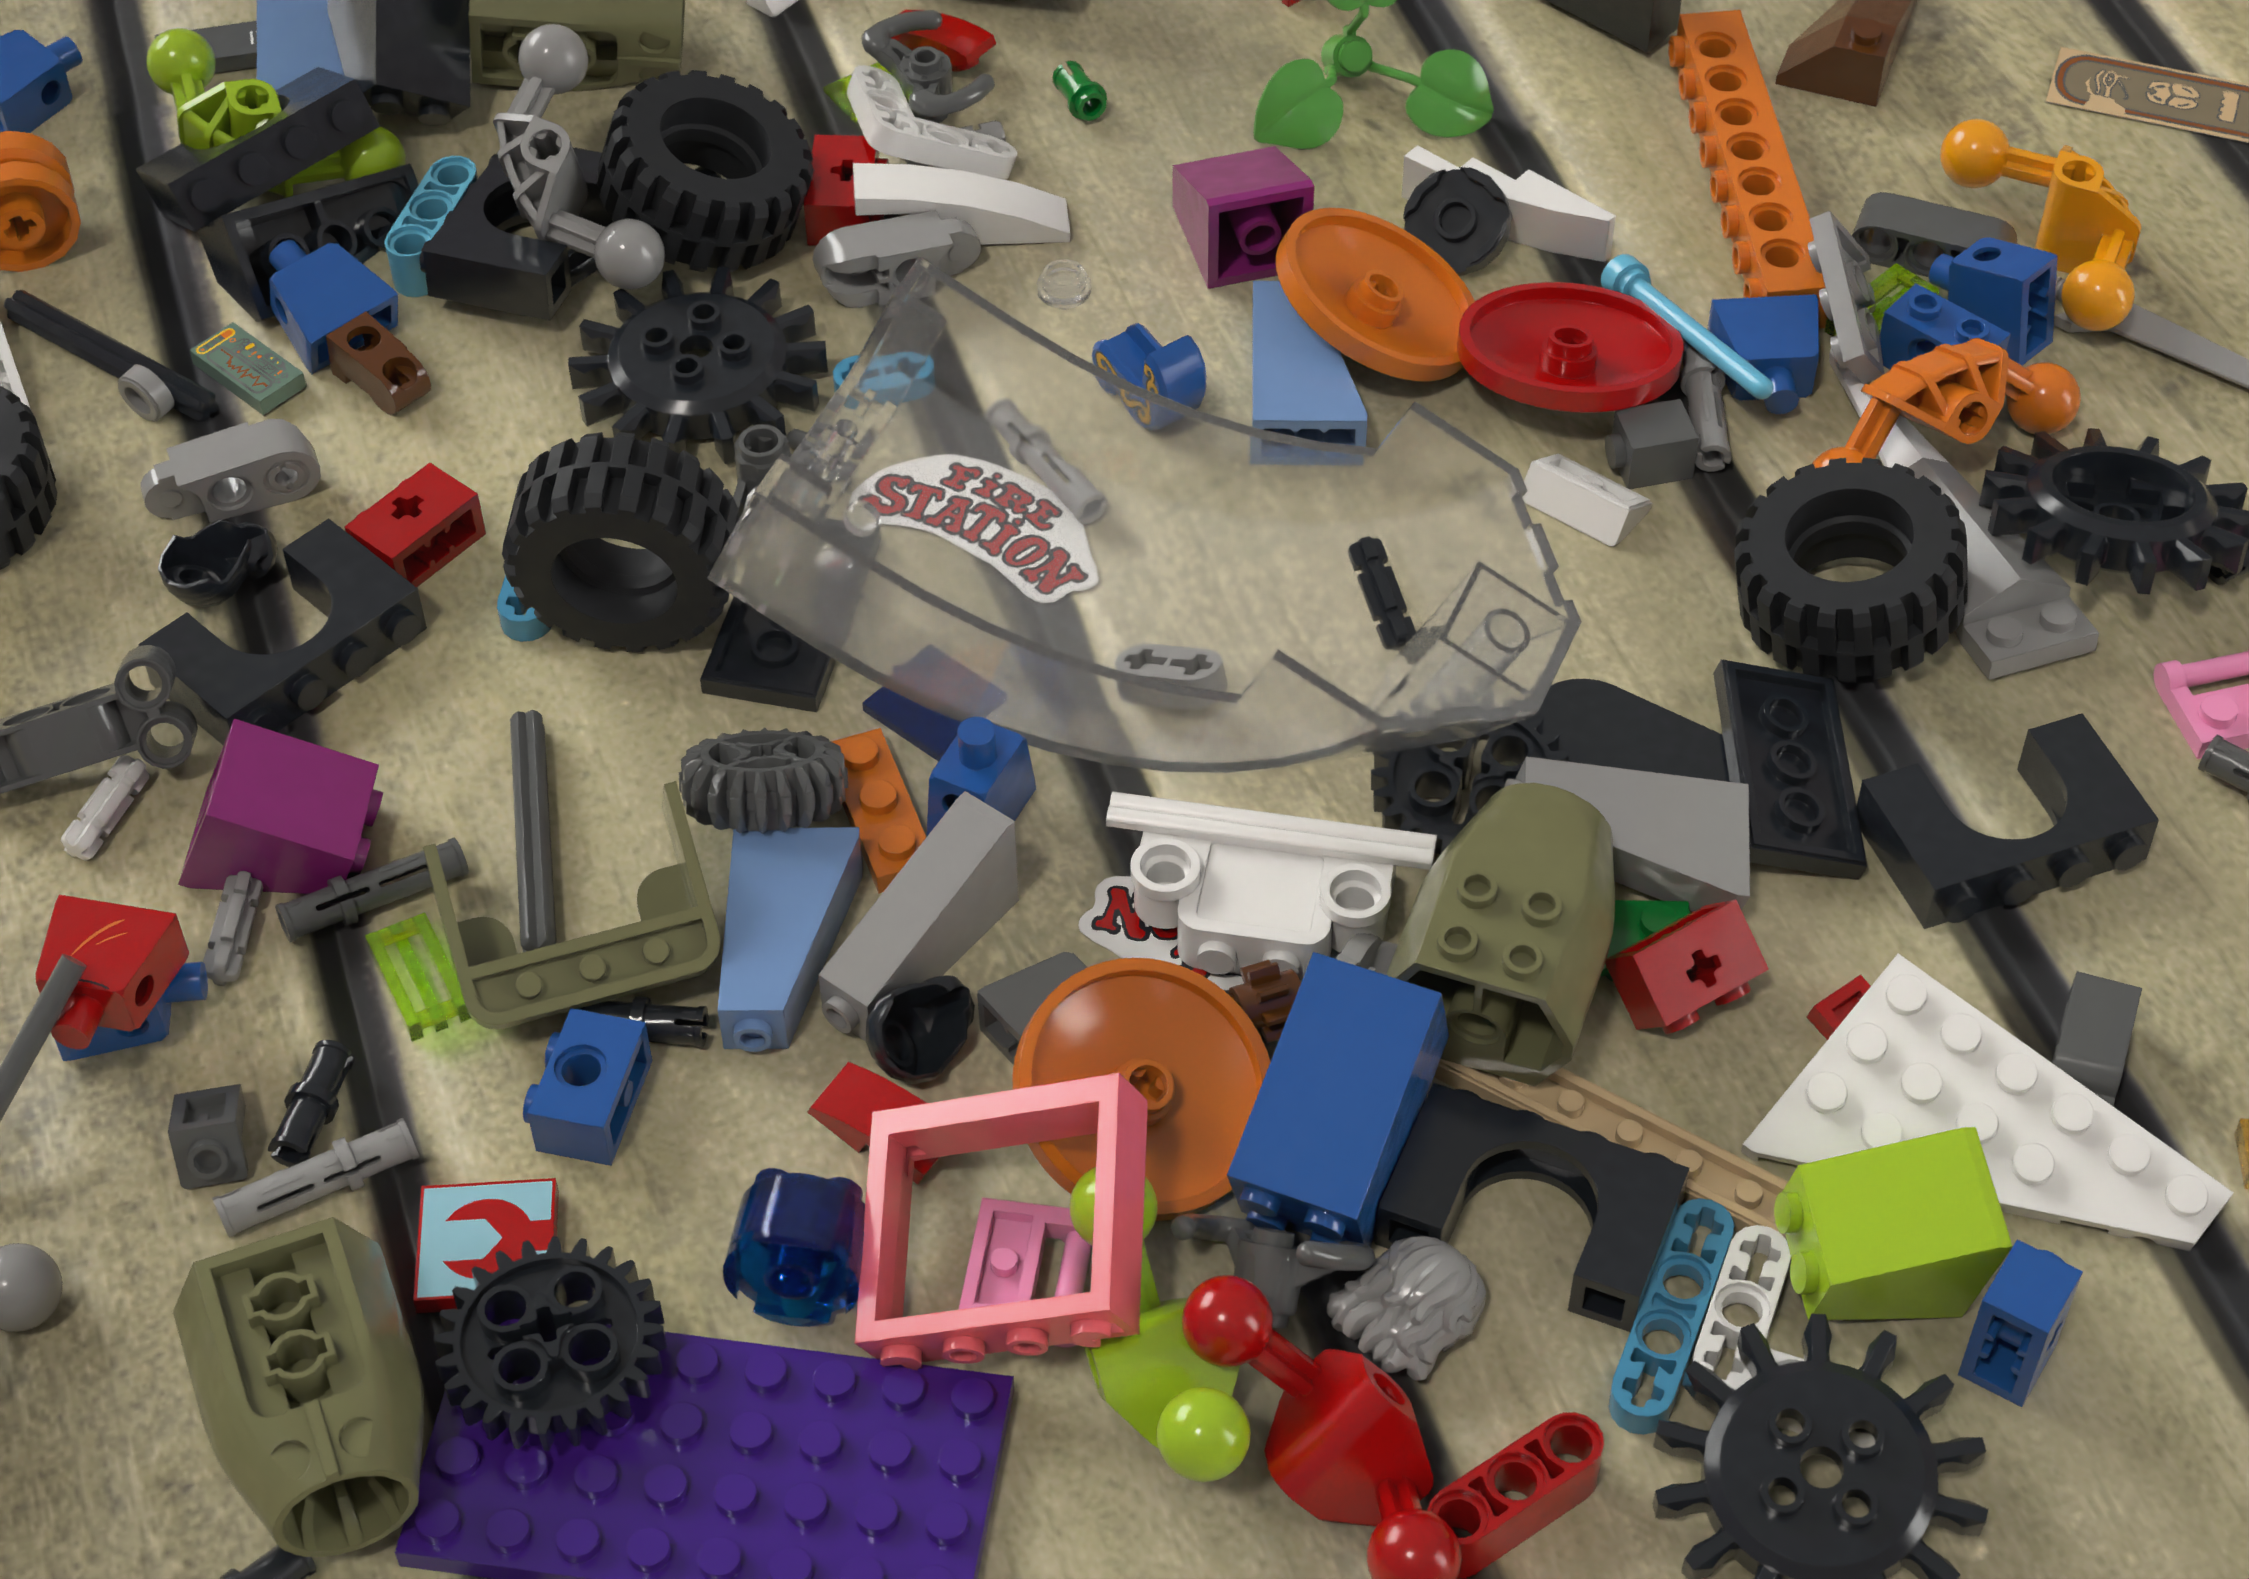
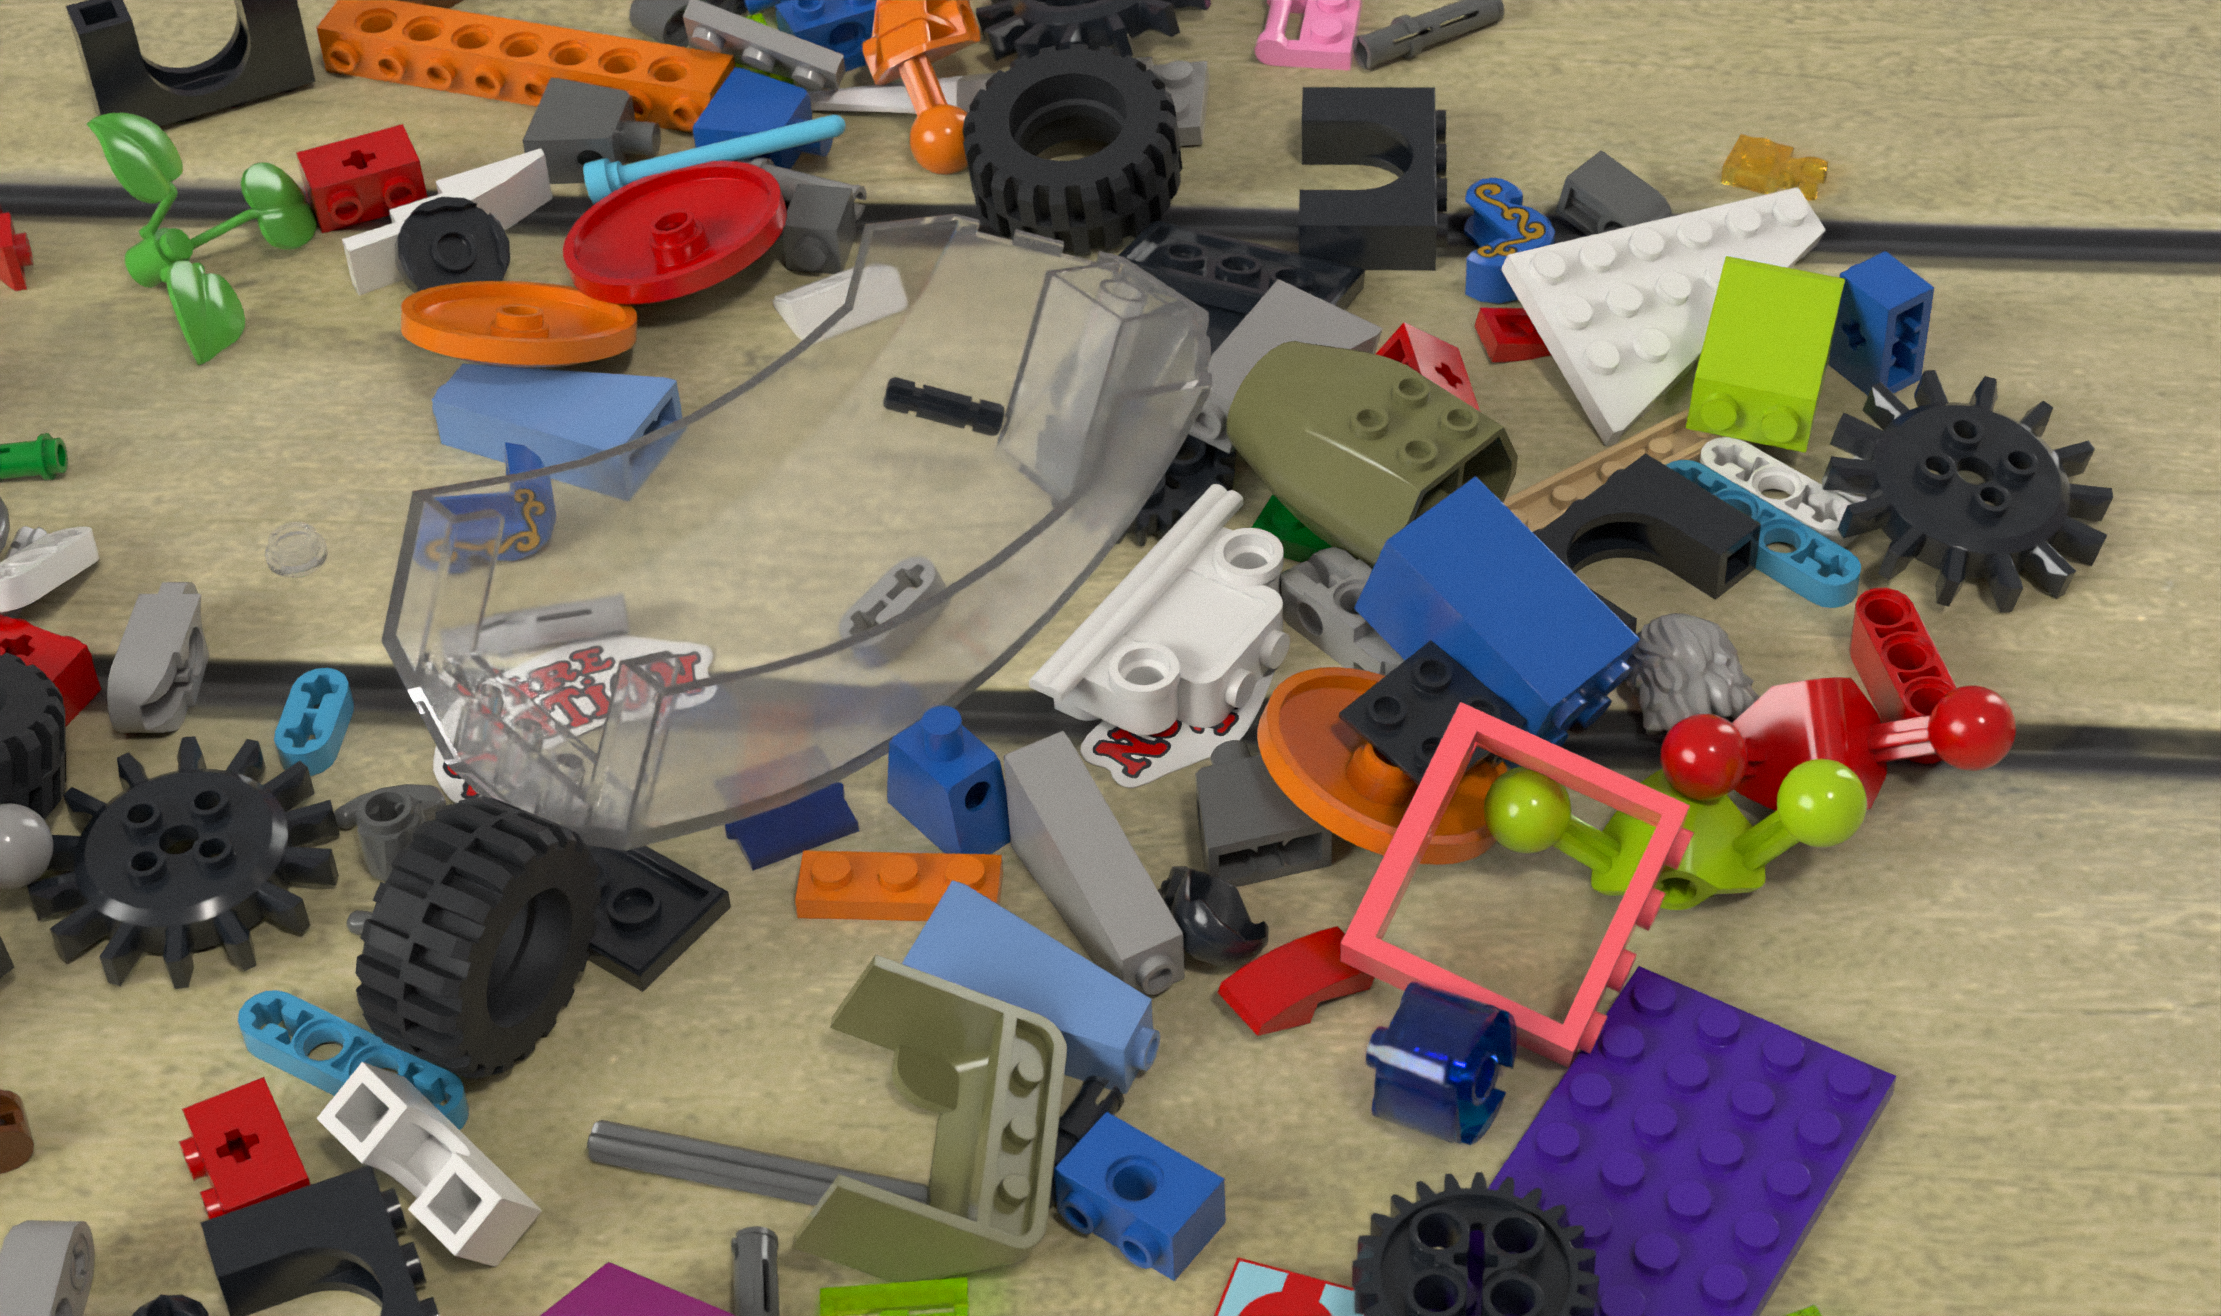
camera: 65 degrees left, 5 degrees down
(459, 588) = (456, 1186): none -> white arch
(763, 780) = (836, 929): dark grey gear -> none
(993, 206) = (108, 589): white slope -> none
(1010, 1253) = (1517, 937): bright pink plate -> none
(1199, 1097) = (1414, 705): none -> black hinge
(1239, 211) = (318, 384): magenta slope -> none
(1266, 997) = (1310, 650): reddish brown gear -> none
(1272, 1260) = (1623, 736): dark grey piece -> none
(1526, 129) = (361, 177): none -> red brick
(1678, 238) = (584, 125): none -> dark grey torso
(1986, 979) = (1500, 229): none -> blue animal

